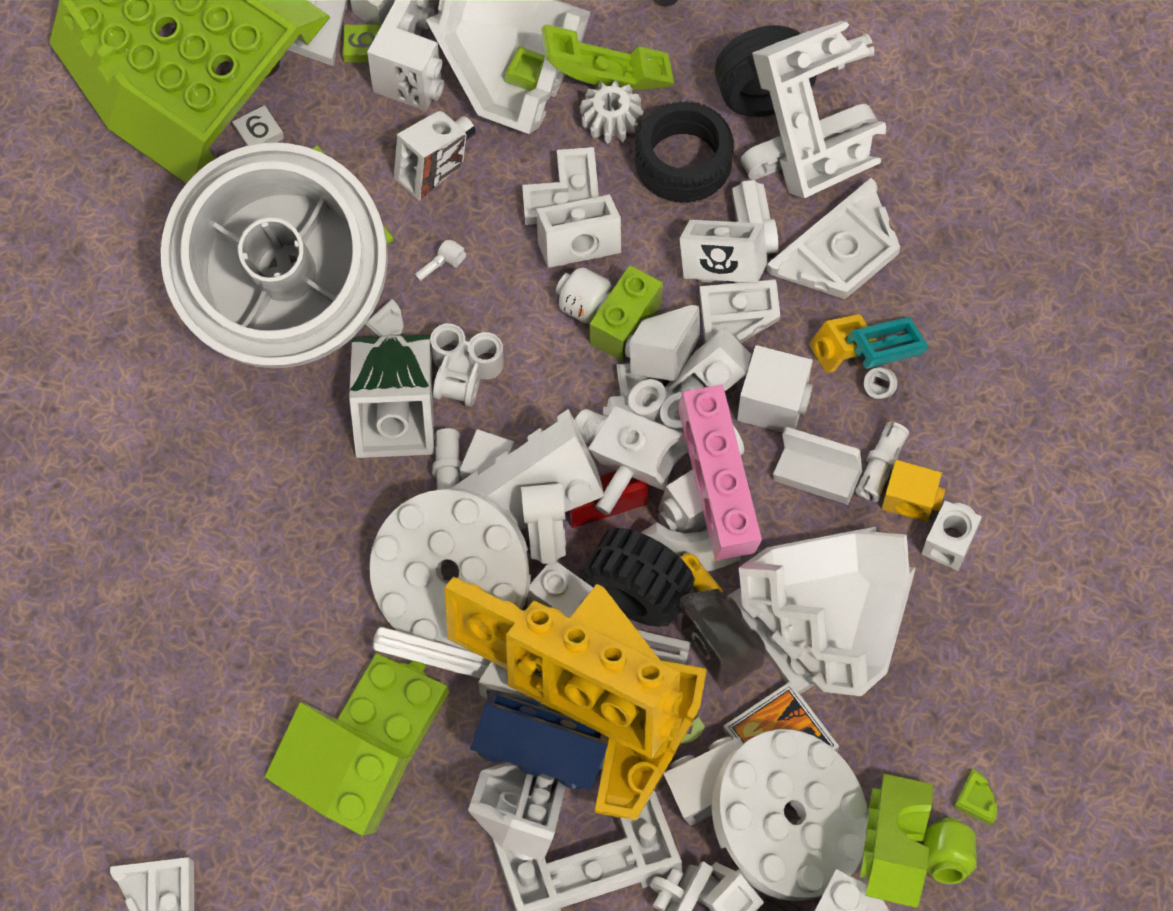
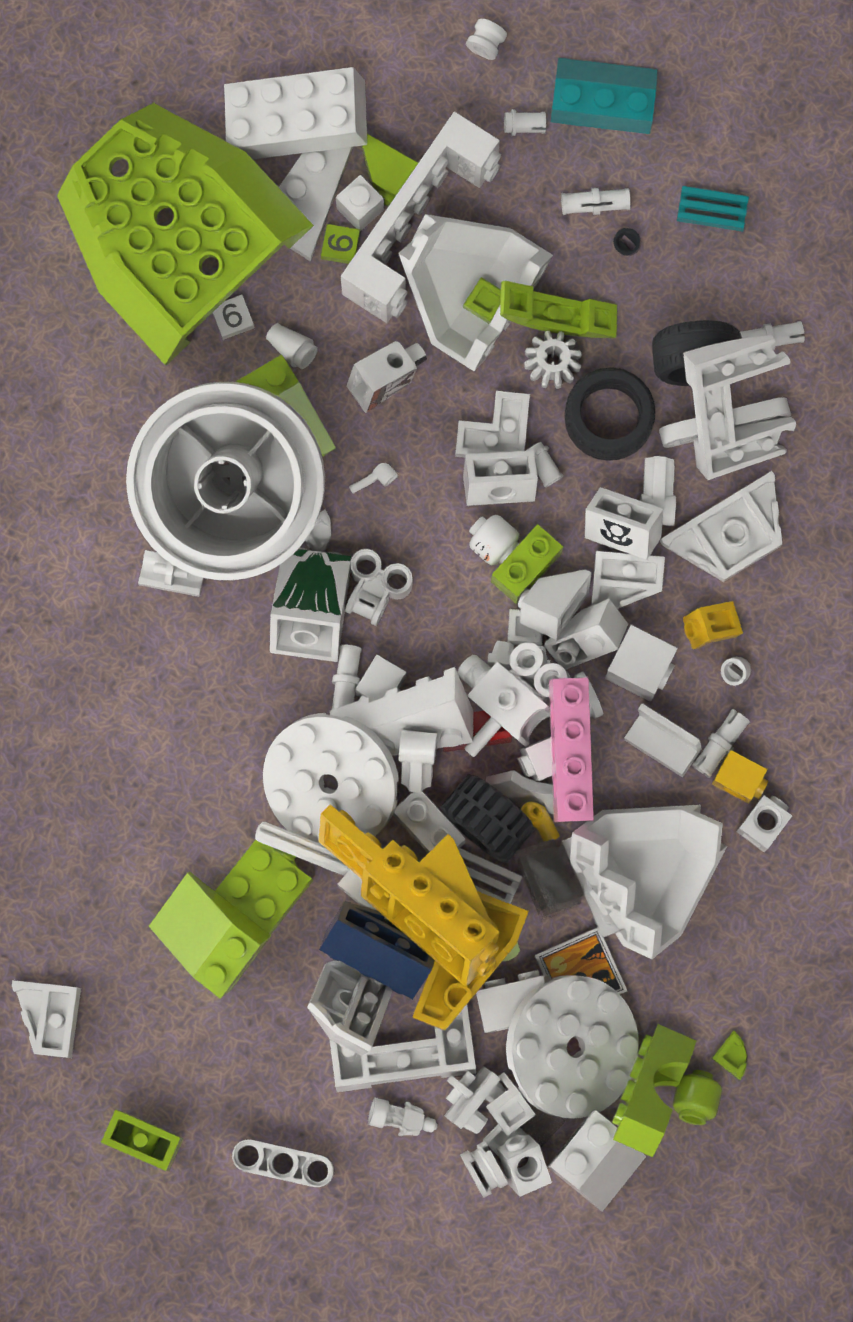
camera: 10 degrees right, 15 degrees up
(232, 388) = (163, 575): none -> white hips
(332, 142) = (294, 347): none -> white cone
(631, 222) = (545, 466): none -> white pin
(892, 347) = (728, 640): teal tile -> none

